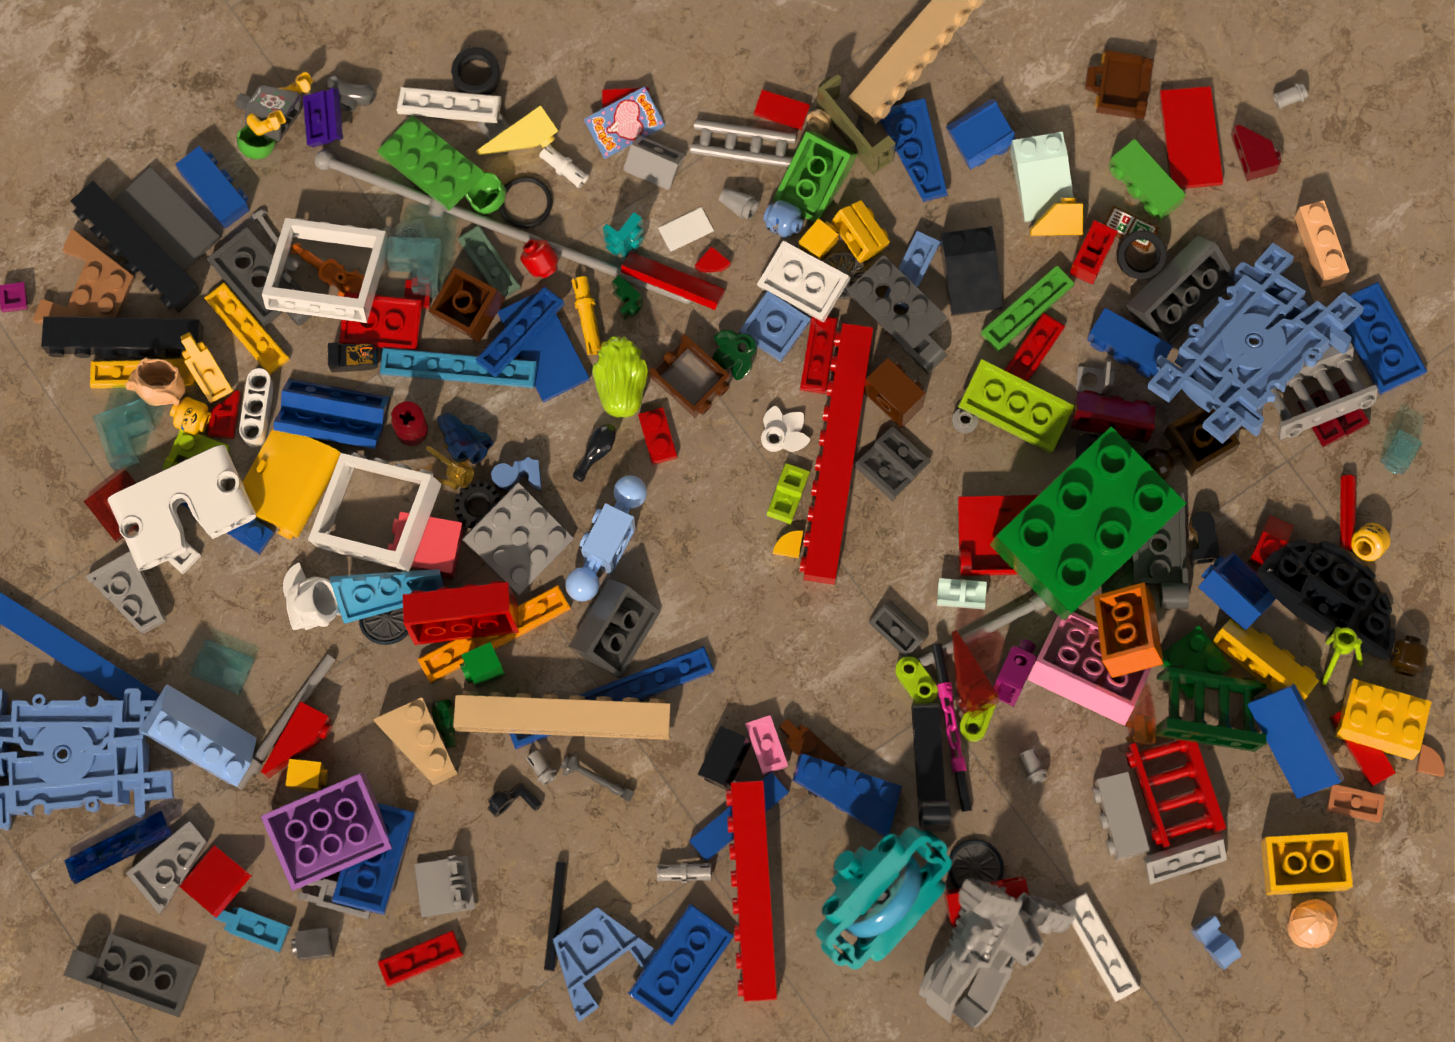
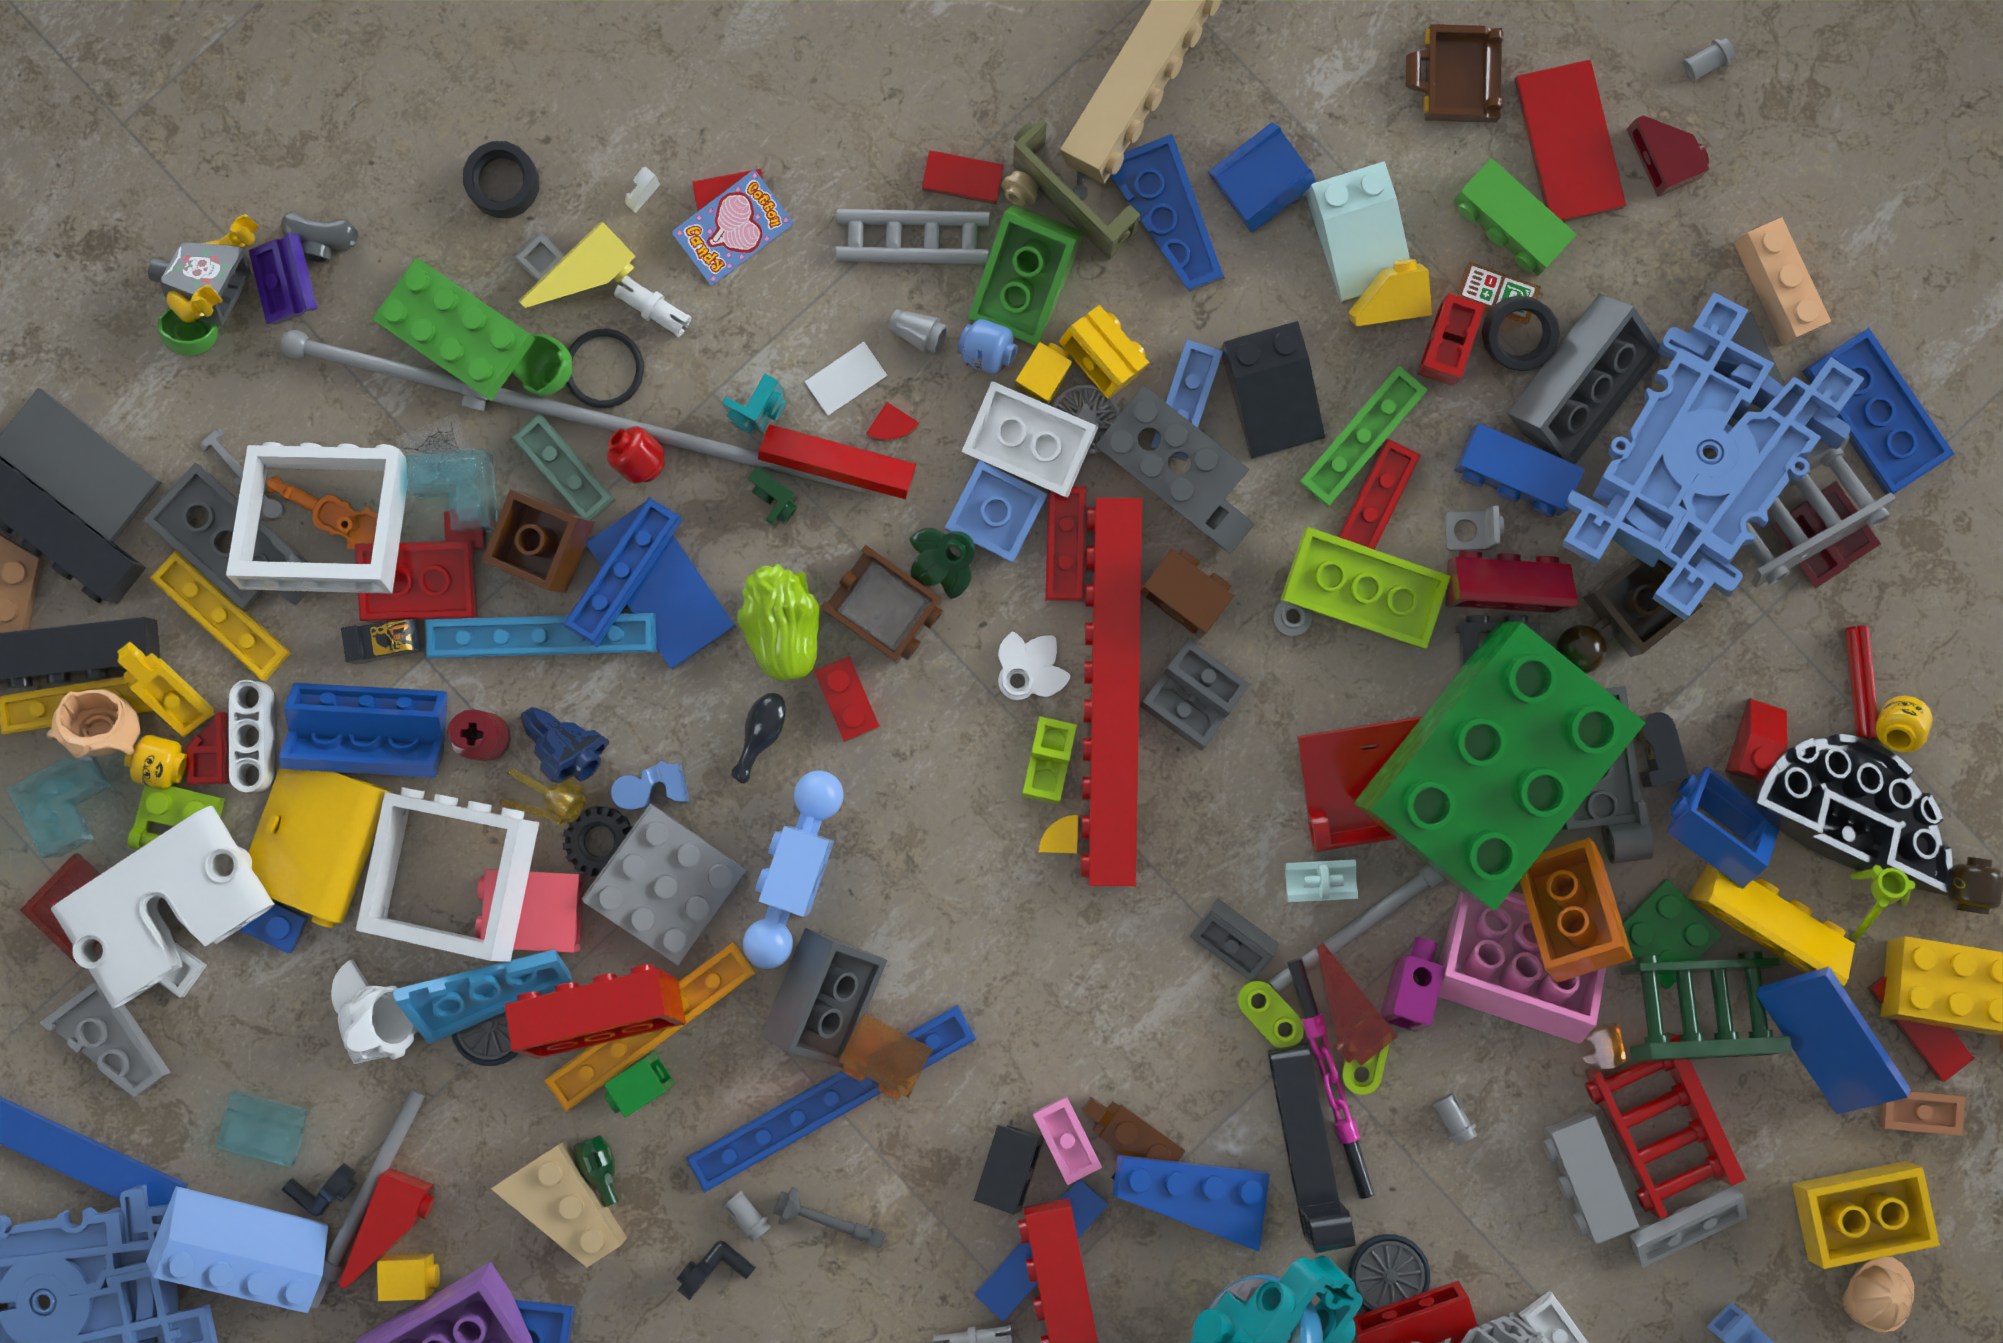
camera: 10 degrees left, 10 degrees up
(213, 186) = (136, 406): blue brick -> none
(267, 709) = (337, 1186): none -> black plate
(449, 105) = (468, 234): white tile -> none
(562, 716) = (765, 1144): tan brick -> none
(572, 87) = (646, 186): none -> white tile
(585, 307) = (721, 538): yellow pin -> none
(651, 668) = (884, 1056): none -> clear orange bracket
(653, 162) = (784, 282): light grey panel -> none
(1401, 452) = (1931, 583): clear light blue brick -> none

